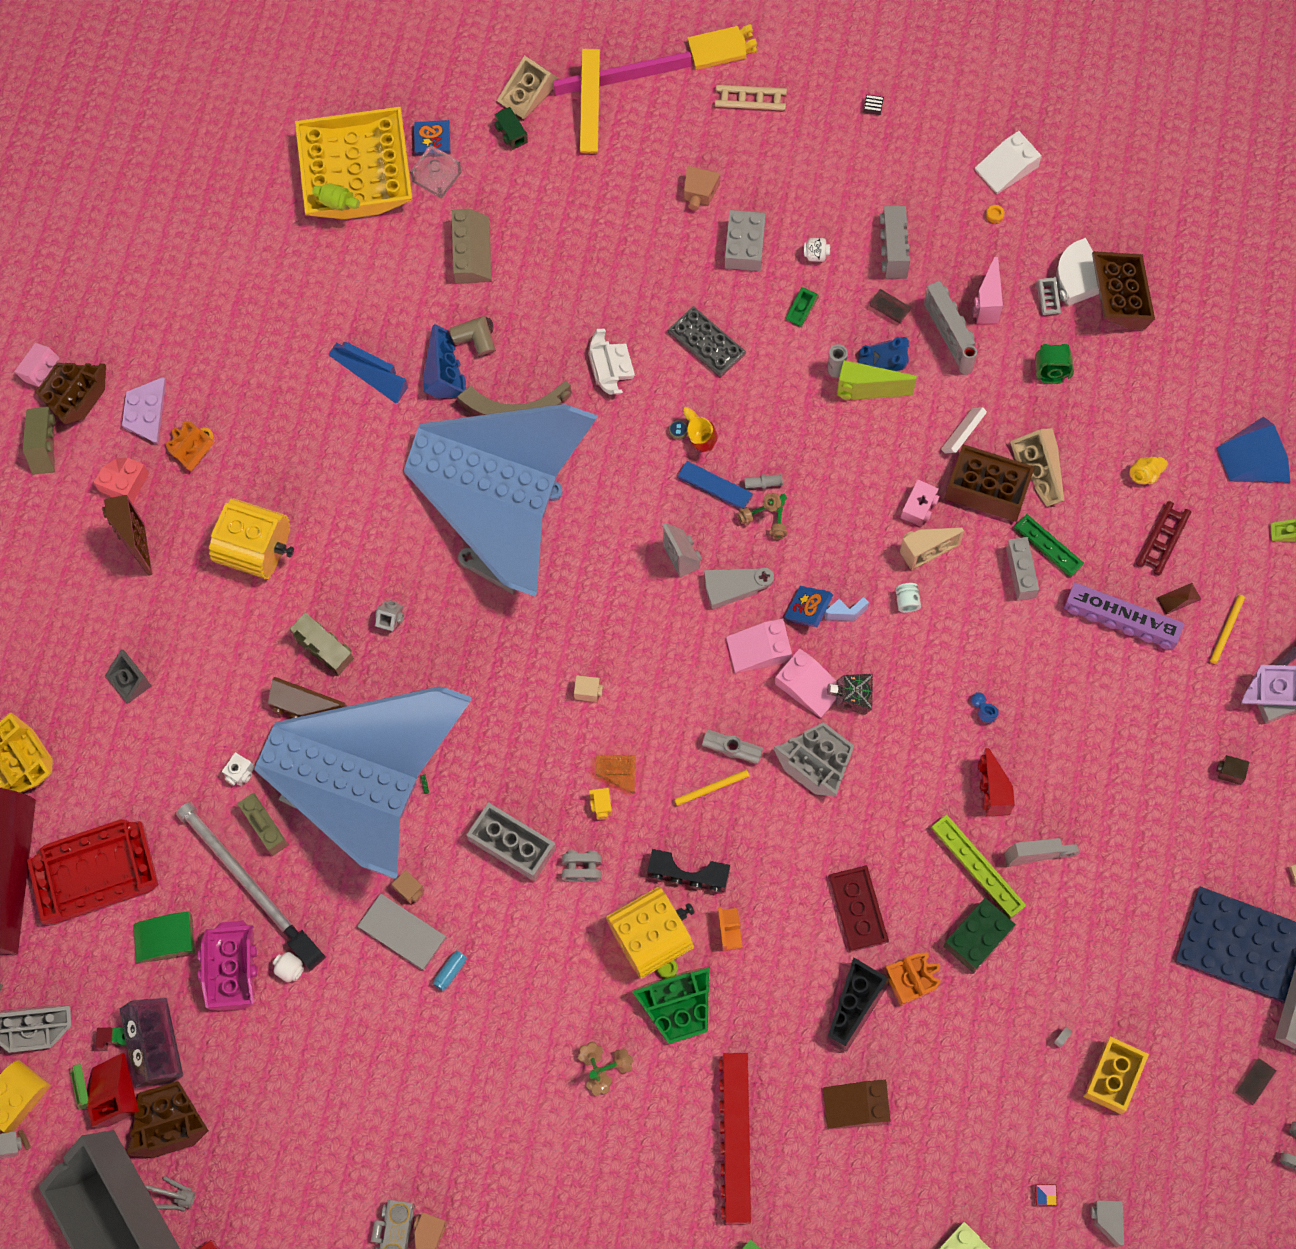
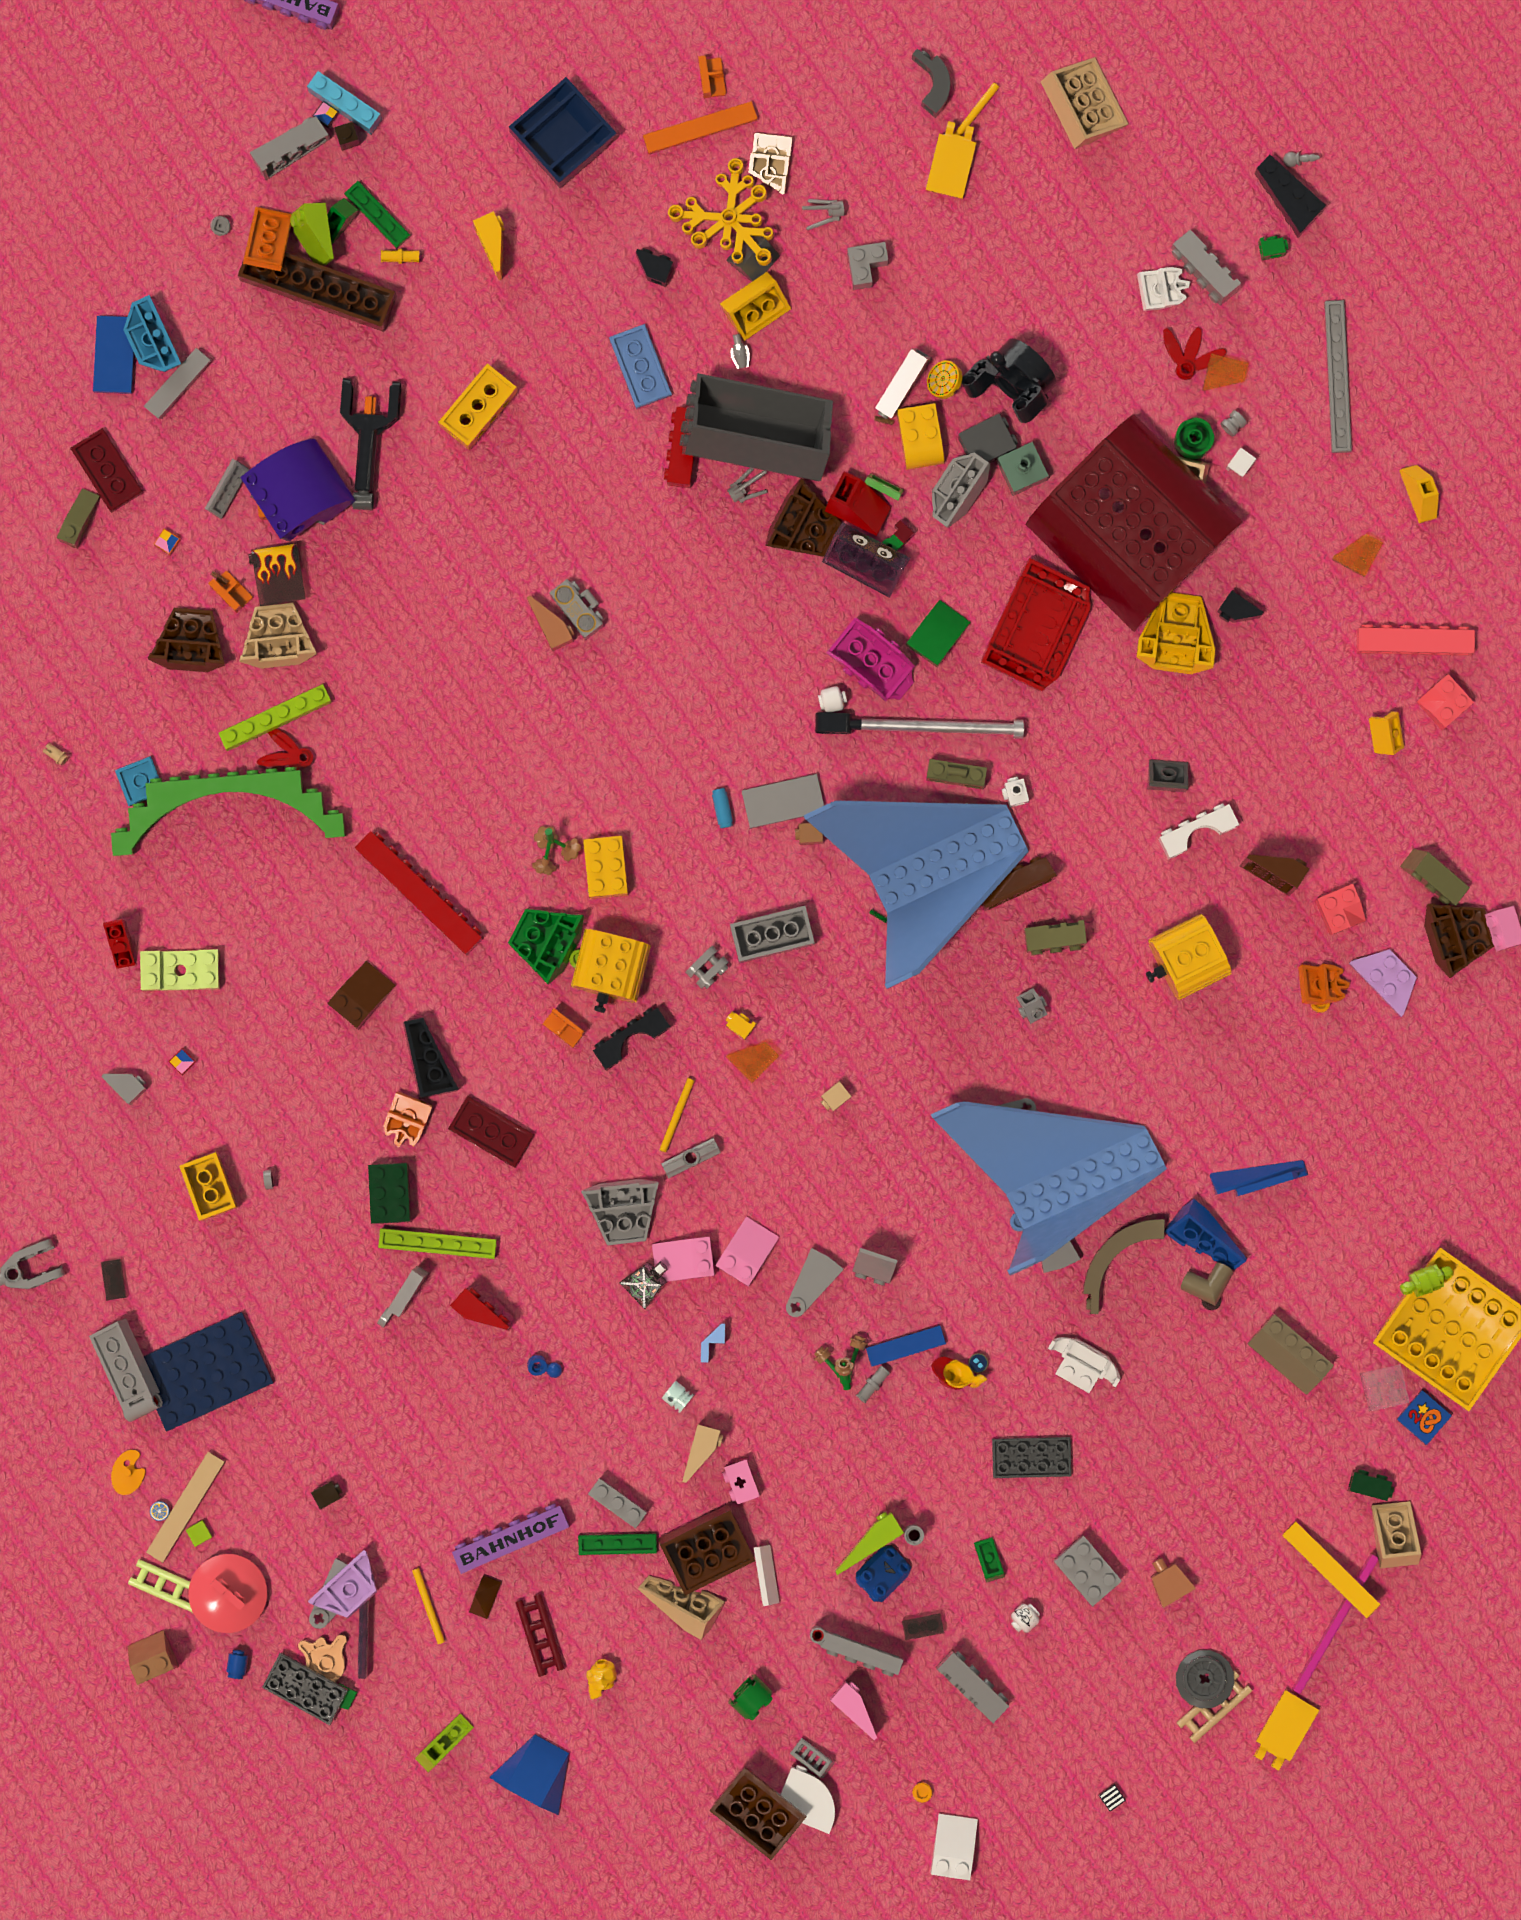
camera: 130 degrees right, 15 degrees up
(172, 628) = (1220, 820): none -> white arch
(578, 1013) = (605, 867): none -> yellow brick
(737, 128) = (1207, 1694): none -> dark grey piece
(808, 606) = (741, 1317): blue tile -> none

